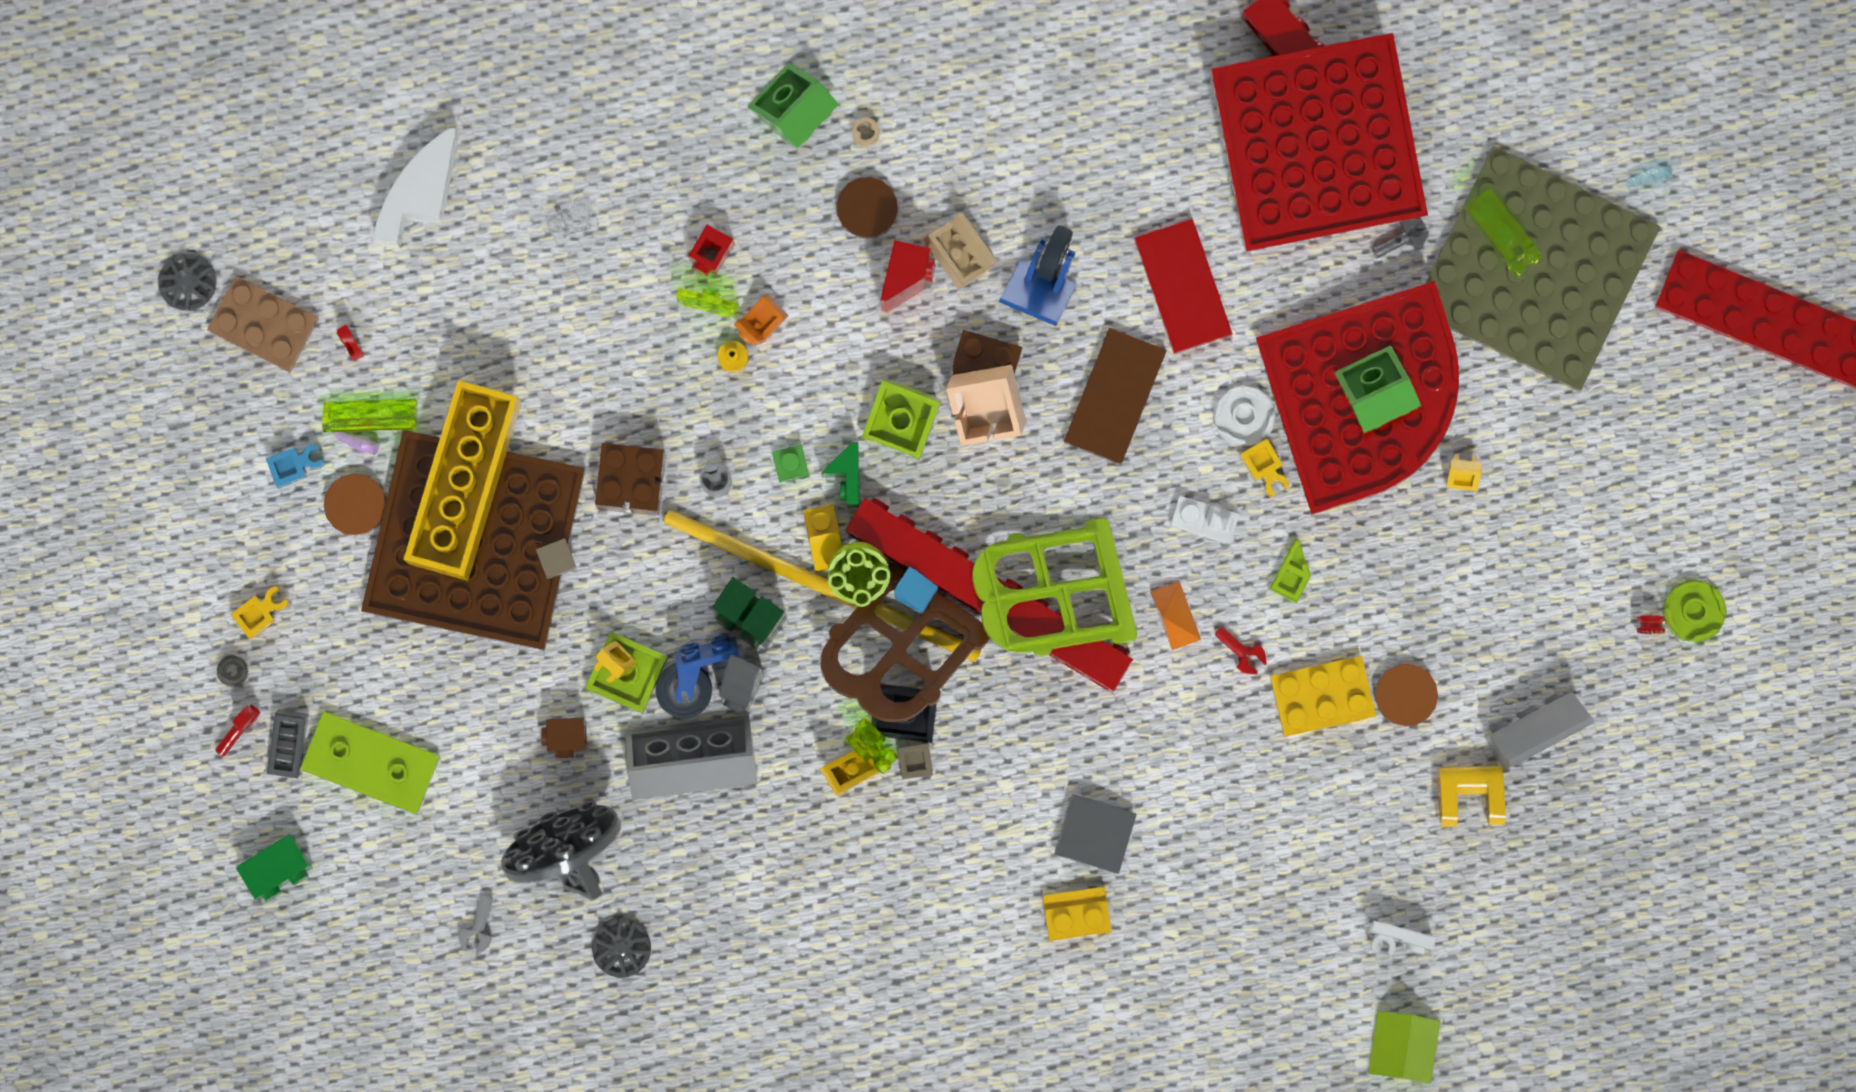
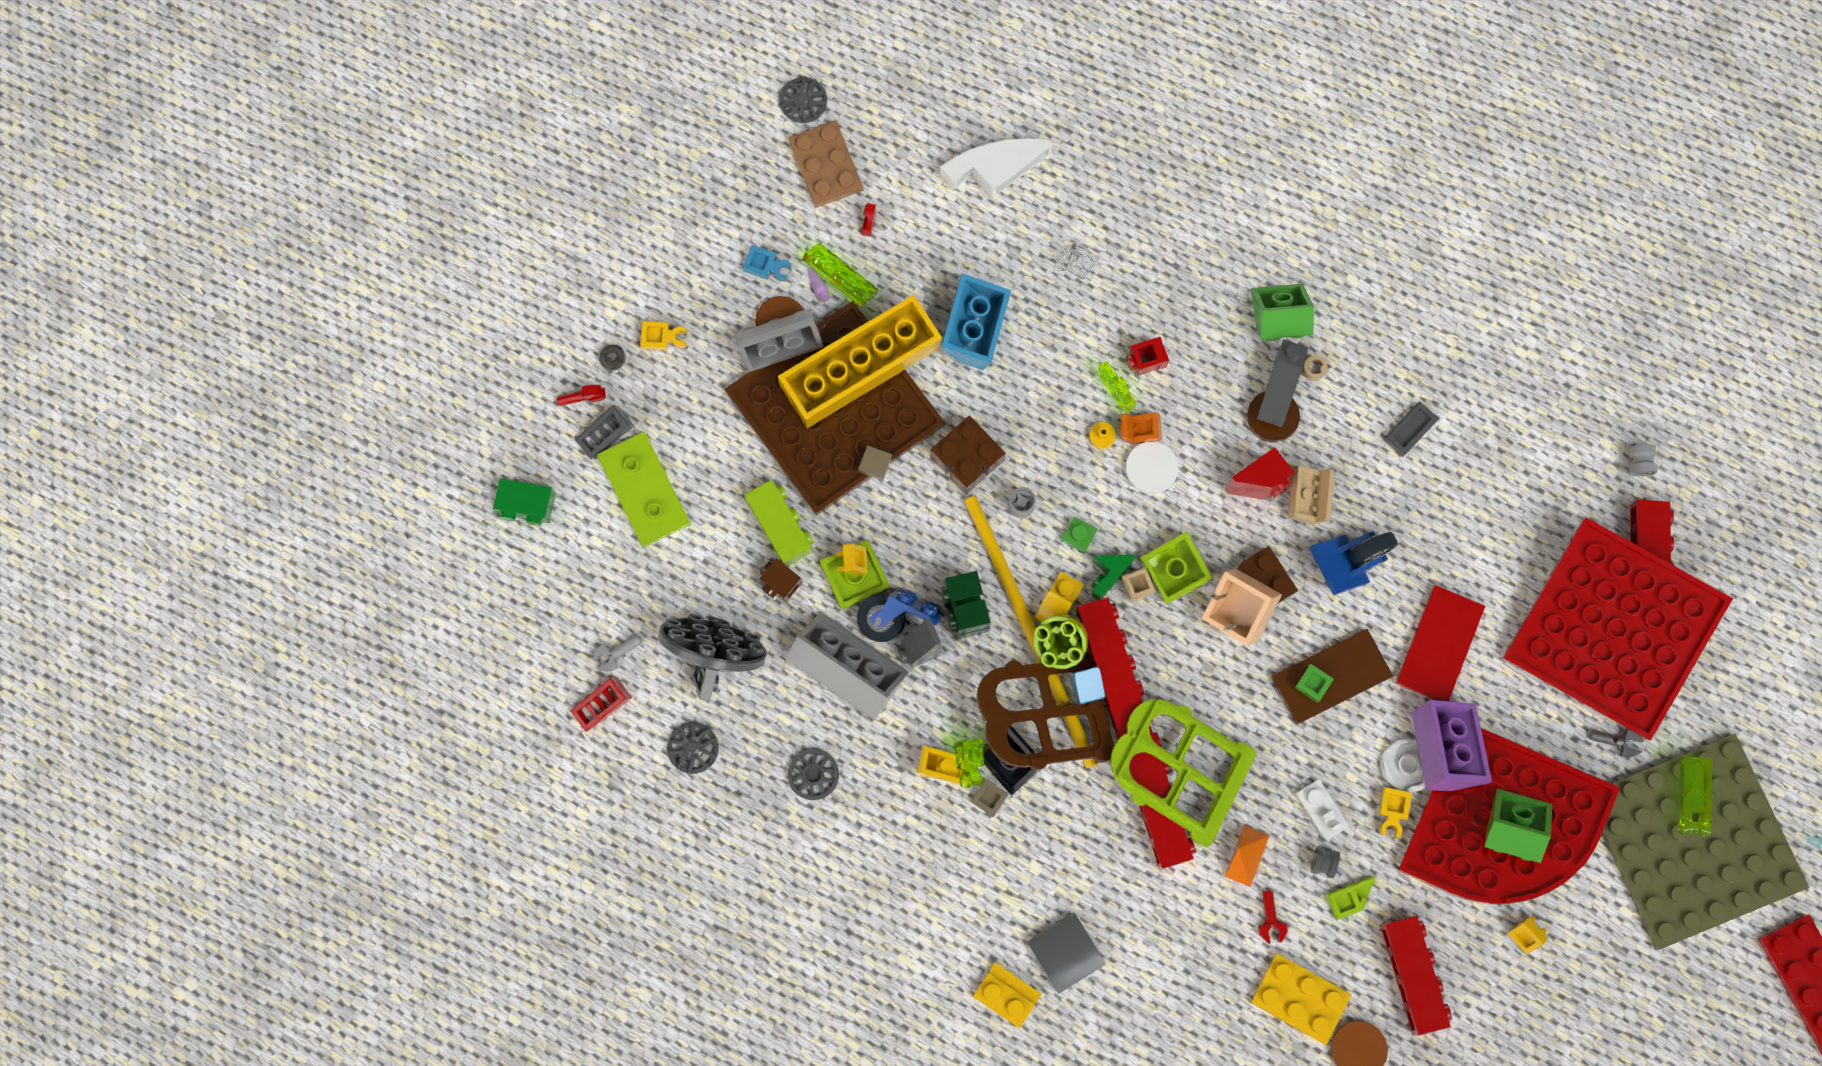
camera: 40 degrees right, 5 degrees down
(371, 523) = (779, 340): none -> light grey slope
(509, 955) = (620, 691): none -> red slope
(519, 685) = (779, 522): none -> lime brick
(532, 354) = (975, 321): none -> dark azure slope
(746, 877) = (813, 774): none -> dark grey wheel
(801, 348) = (1151, 467): none -> white tile
(850, 173) = (1282, 383): none -> dark grey slope
(880, 463) = (1138, 584): none -> tan slope
(996, 114) = (1411, 429): none -> dark grey tile
(1104, 416) = (1314, 683): none -> bright green plate
(1245, 562) = (1325, 862): none -> dark grey wheel
(1264, 369) = (1450, 745): none -> medium lavender slope
(1400, 591) = (1415, 975): none -> red brick

